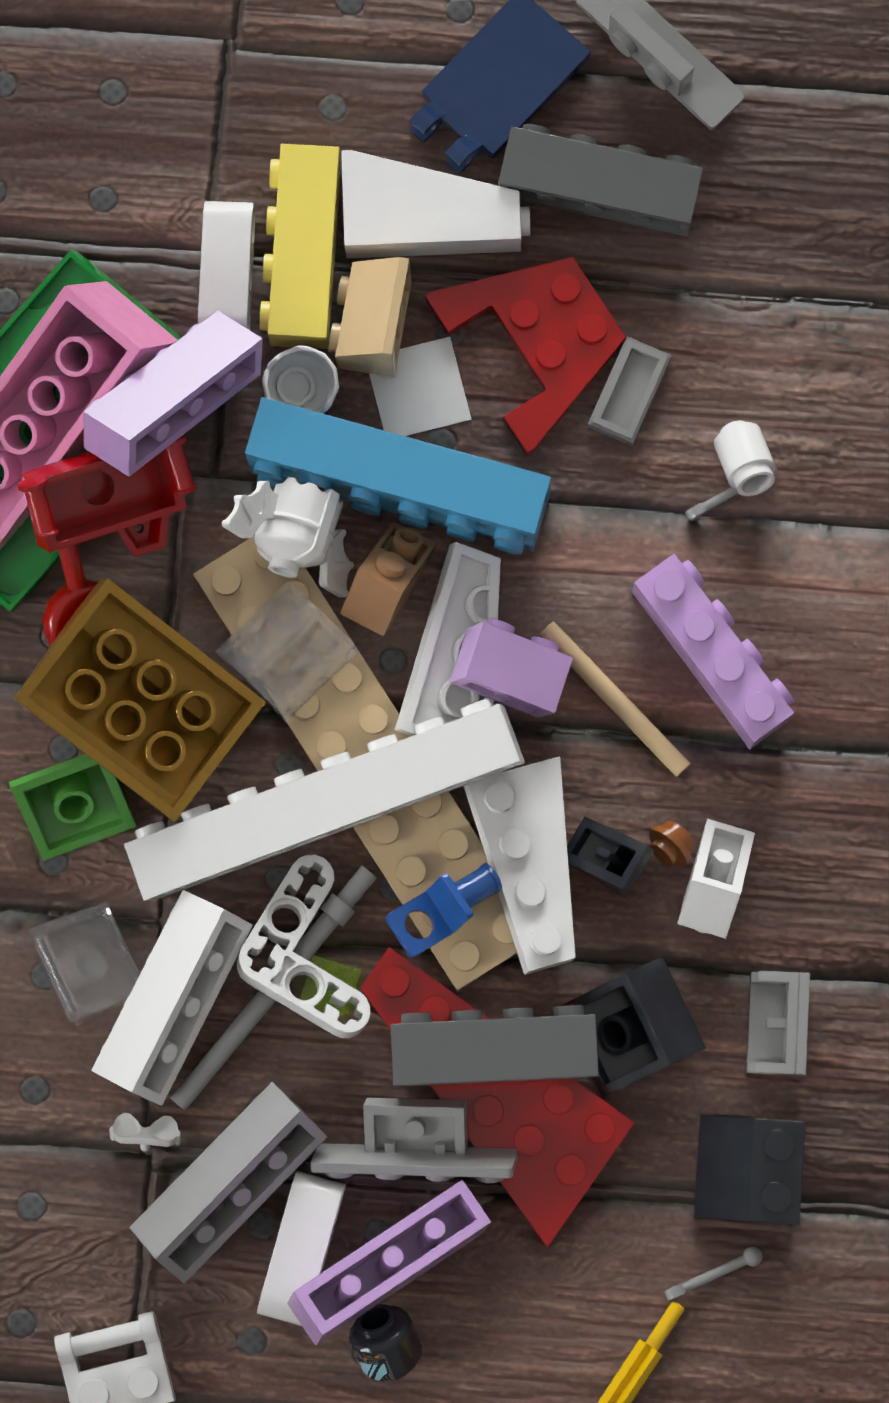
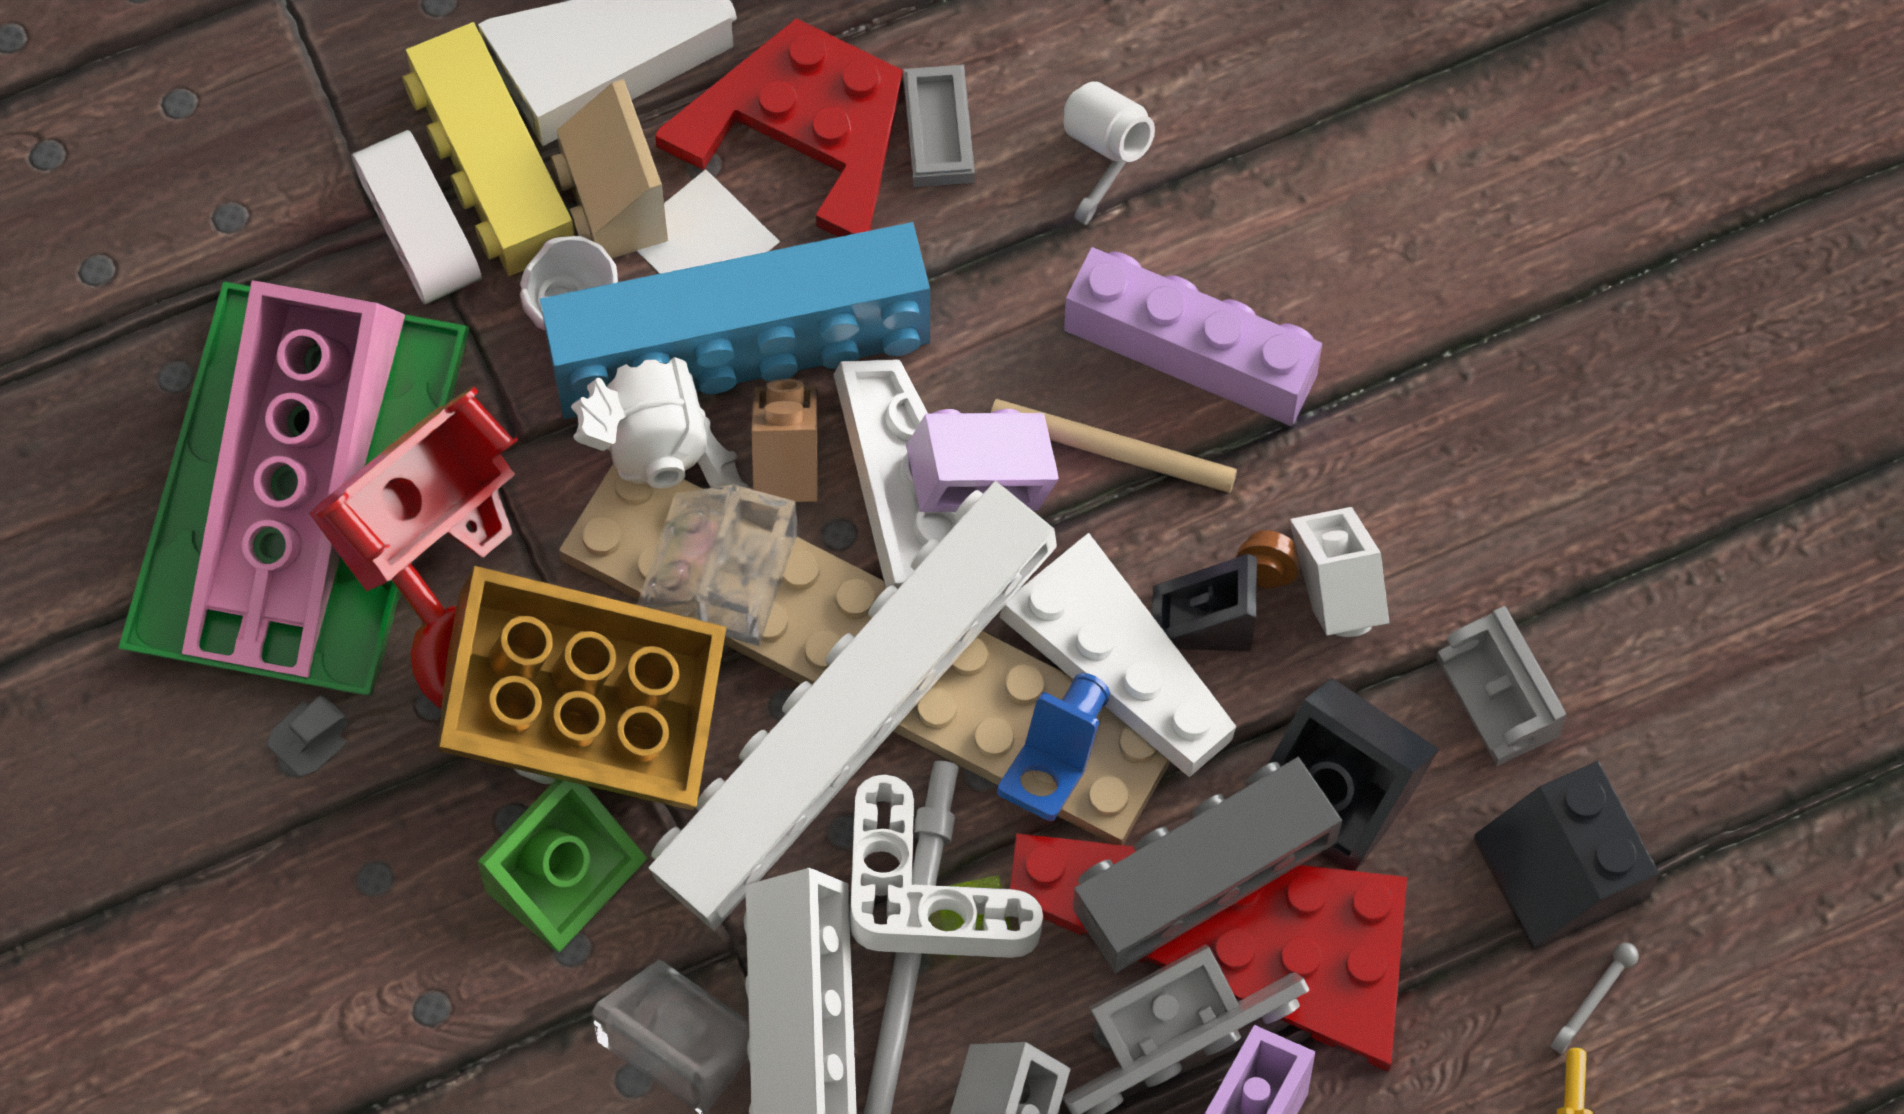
camera: 35 degrees left, 15 degrees down
(172, 393) = (434, 346): brick -> none

